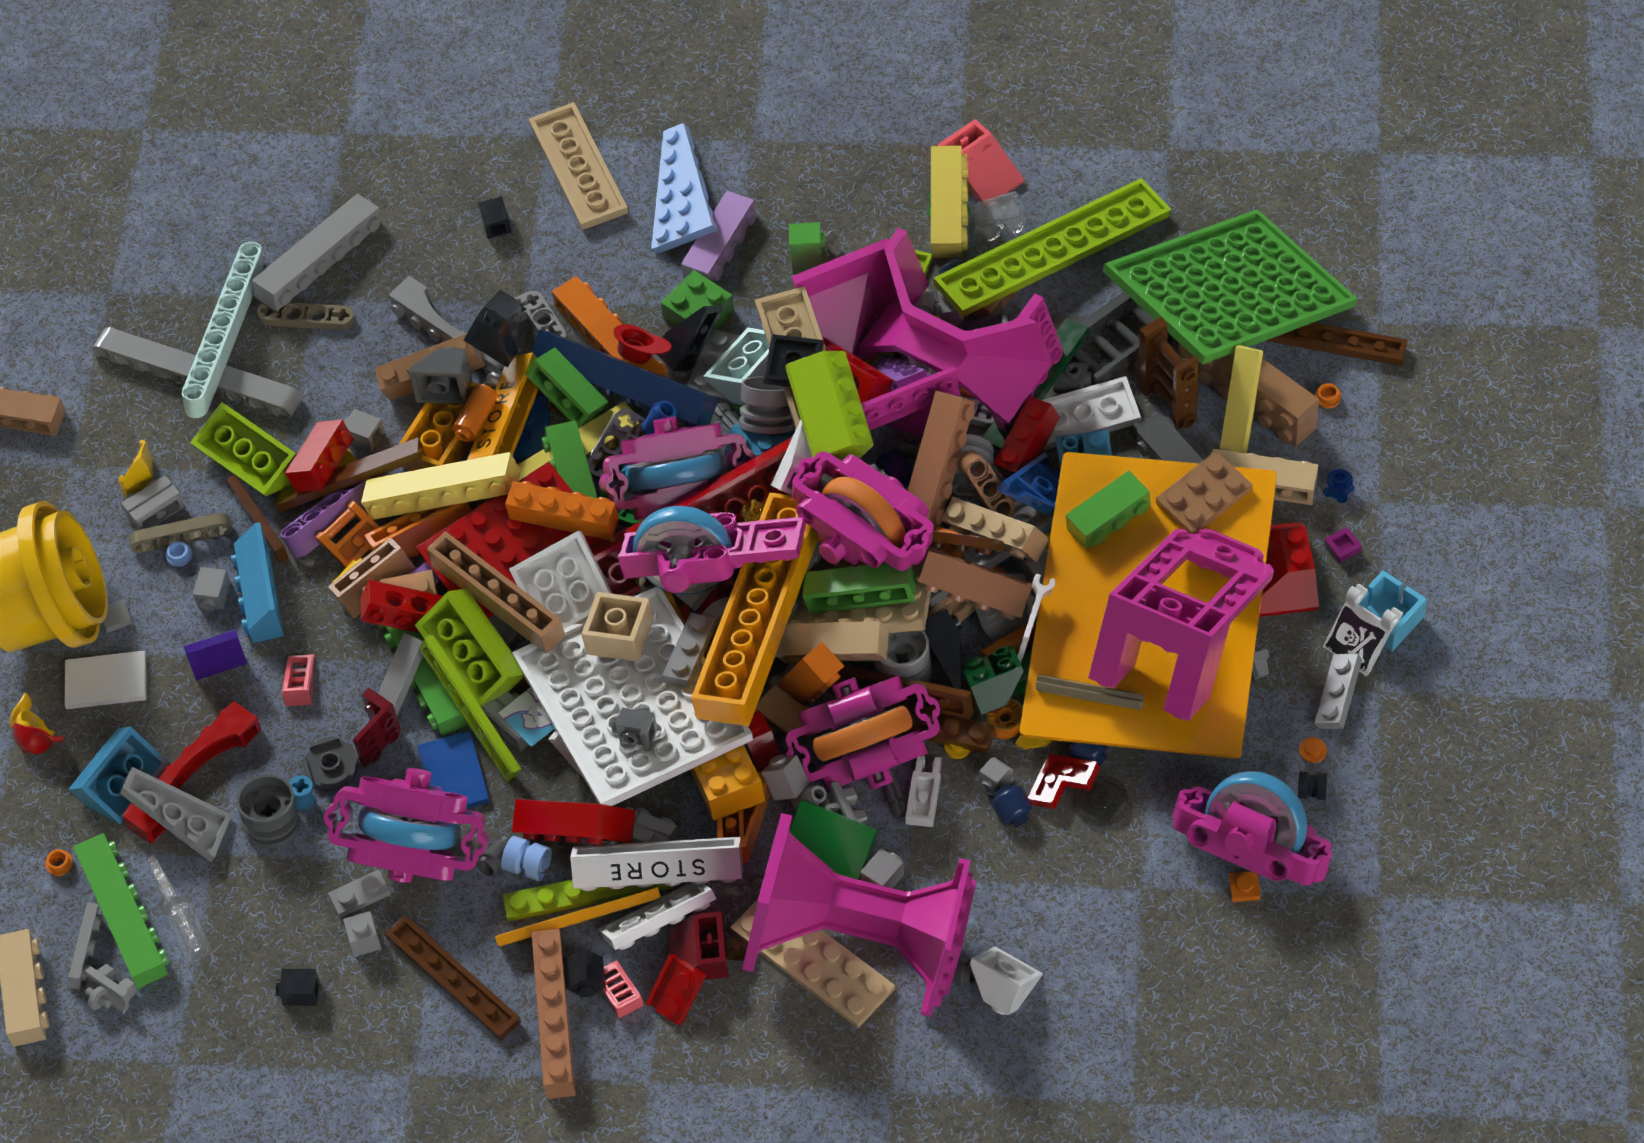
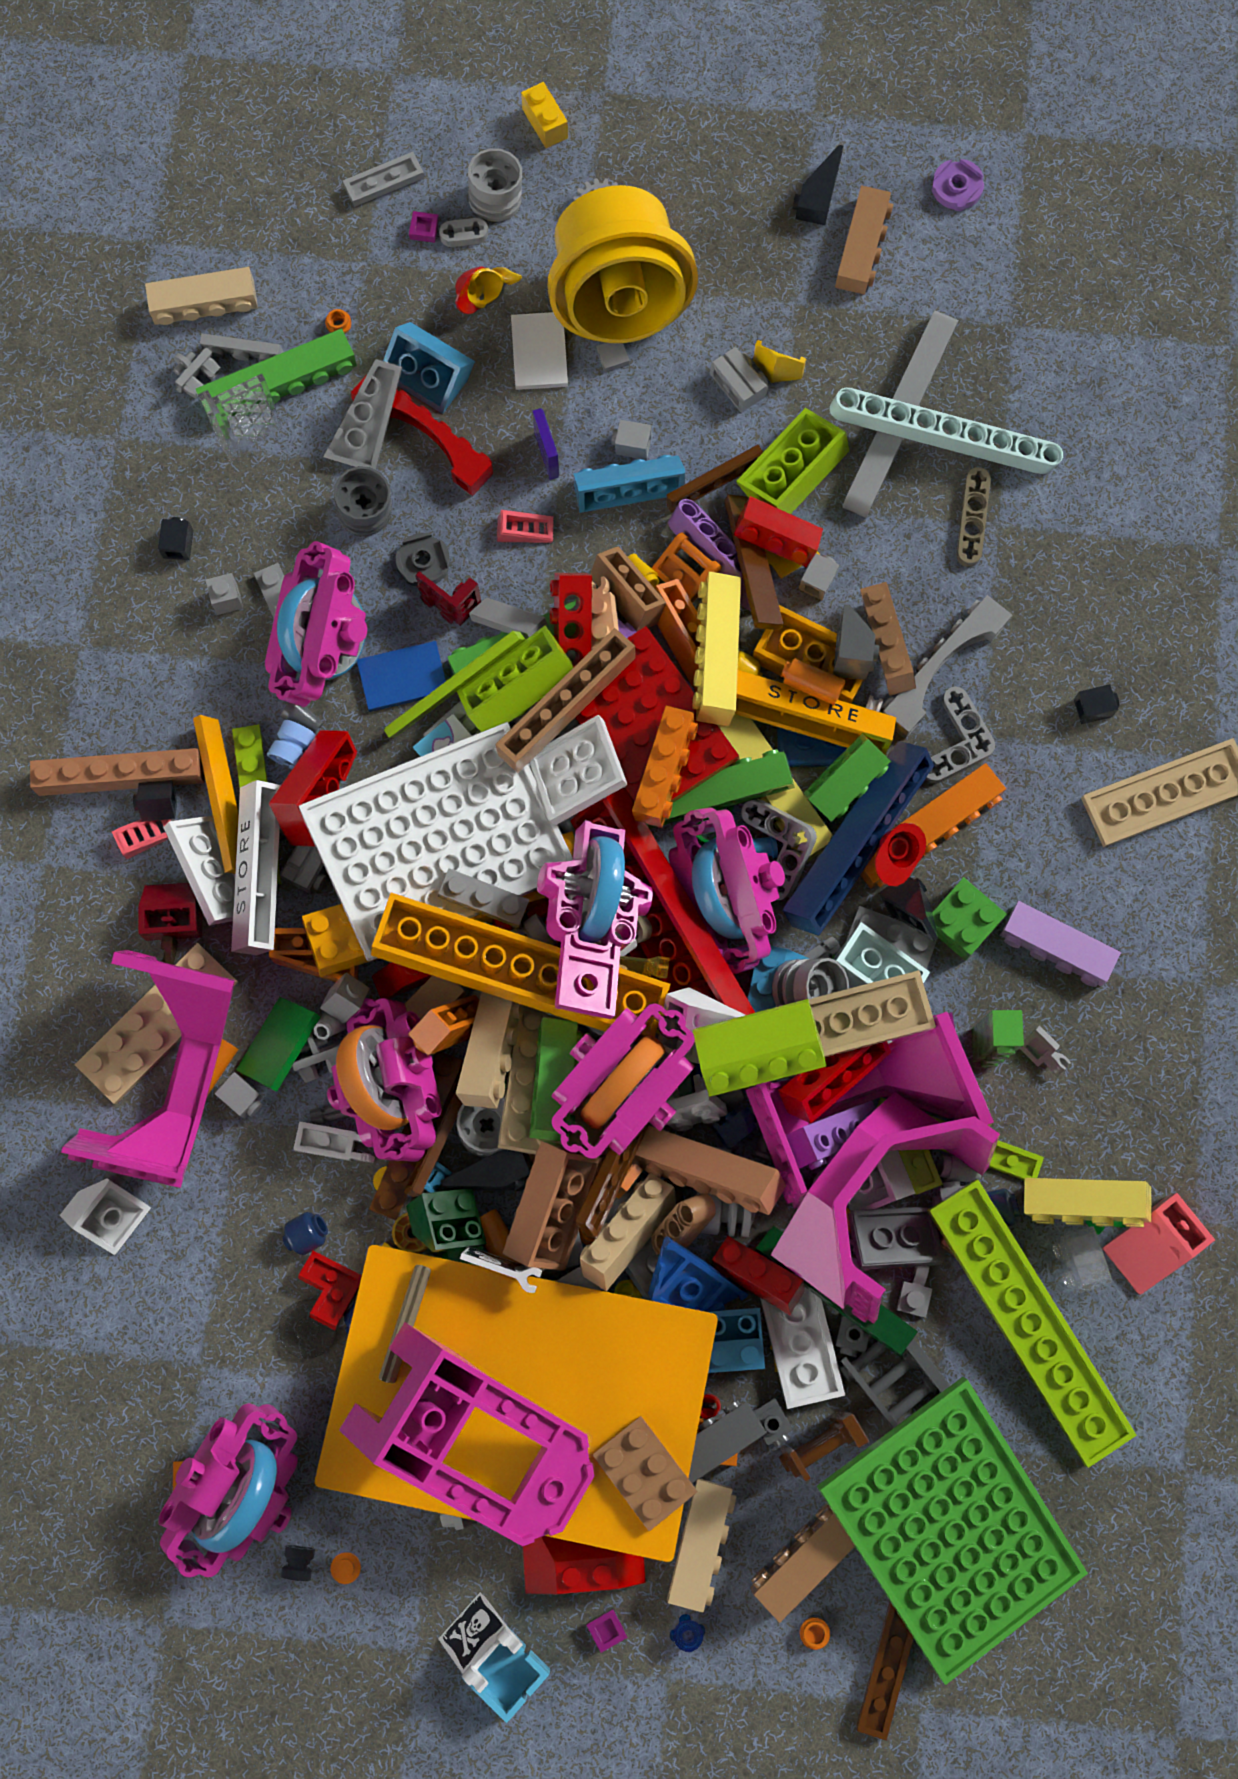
camera: 85 degrees right, 20 degrees up
(153, 537) = (703, 408): dark tan beam -> none
(178, 554) = (680, 408): light blue plate -> none
(302, 789) = (382, 529): dark azure bush -> none
(316, 252) = (1050, 522): light grey brick -> none
(453, 977) = (172, 679): reddish brown plate -> none
(497, 328) = (924, 704): black wedge -> none
(617, 626) = (510, 822): tan brick -> none
(635, 727) = (379, 839): dark grey brick -> none
(659, 410) = (795, 872): blue cone -> none
(675, 989) = (126, 887): red plate -> none
(681, 194) = (1118, 903): light blue wing -> none
(786, 350) = (836, 1010): black tile -> none
(995, 776) = (341, 1218): light grey plate -> none
(1108, 510) = (626, 1360): bright green brick -> none
(1241, 399) = (790, 1529): light yellow tile -> none
(1338, 691) = (415, 1604): light grey plate -> none

